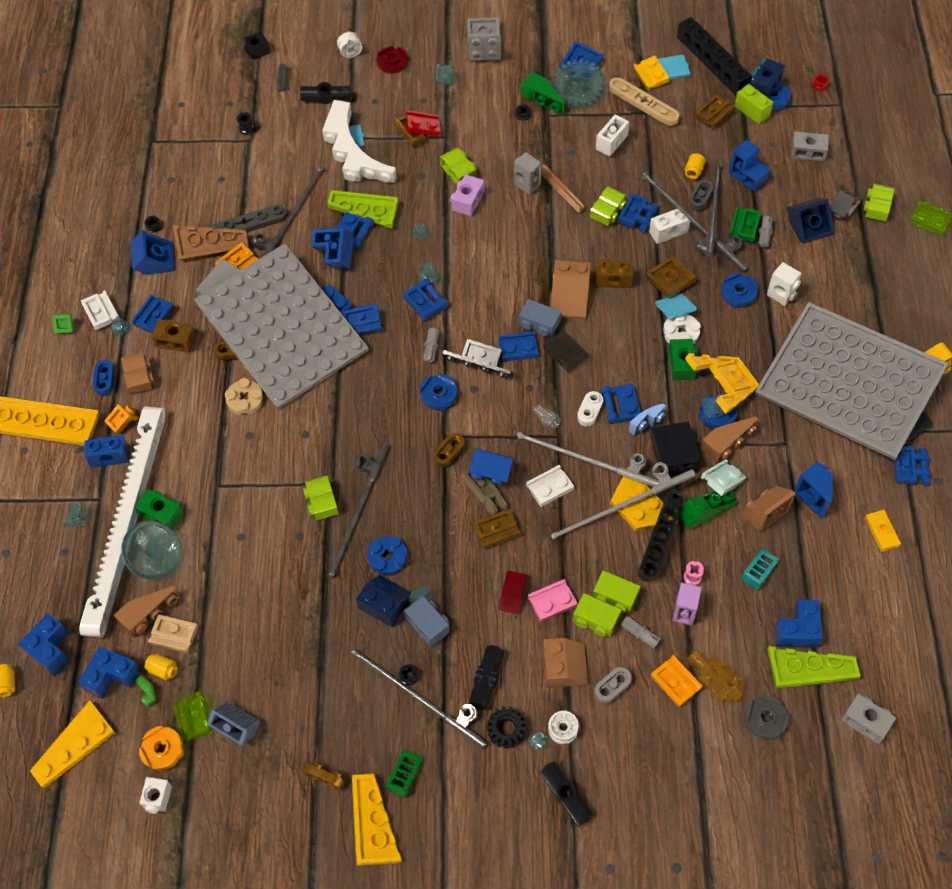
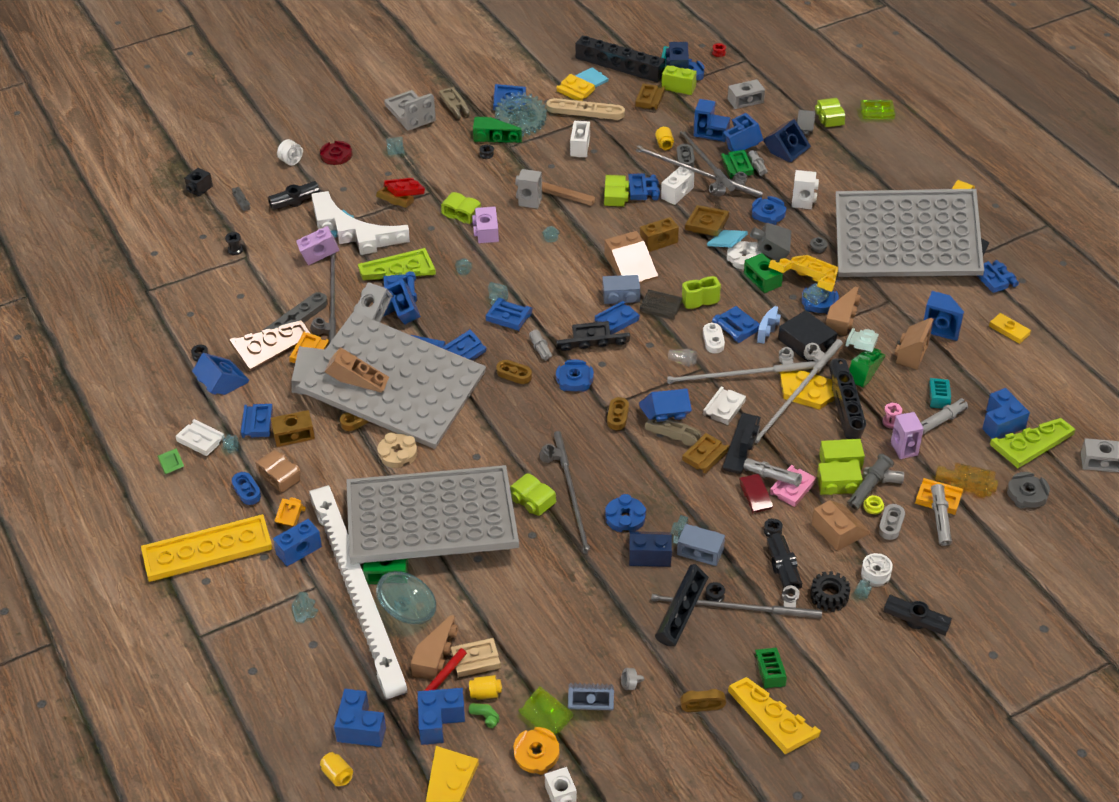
camera: 30 degrees left, 15 degrees down
(136, 637) = (449, 667): none -> red bar
(222, 478) = (430, 514): none -> light grey plate
(245, 309) = (356, 372): none -> medium nougat slope
(279, 722) = (630, 678): none -> light grey tile
(307, 242) = (376, 294): none -> light grey brick
(308, 156) = (317, 245): none -> lavender brick
(367, 675) = (681, 606): none -> black brick
(389, 365) = (514, 371): none -> pearl gold plate
(498, 638) = (771, 525): none -> black bush
(520, 229) = (550, 234): none -> clear light blue plate
(529, 44) = (454, 102): none -> dark tan hinge
(537, 533) = (742, 443): none -> black bracket
(549, 595) = (764, 469): none -> light grey pin
(607, 356) = (701, 292): none -> lime brick
(609, 653) = (873, 505): none -> neon yellow plate
(627, 630) = (874, 475): none -> dark grey pin
(658, 708) = (942, 521): none -> light grey pin
(714, 329) = (773, 241): none -> dark grey torso
(742, 596) = (948, 413): none -> light grey pin
(760, 354) = (818, 245): none -> dark grey plate
(771, 194) = (743, 134): none -> blue brick

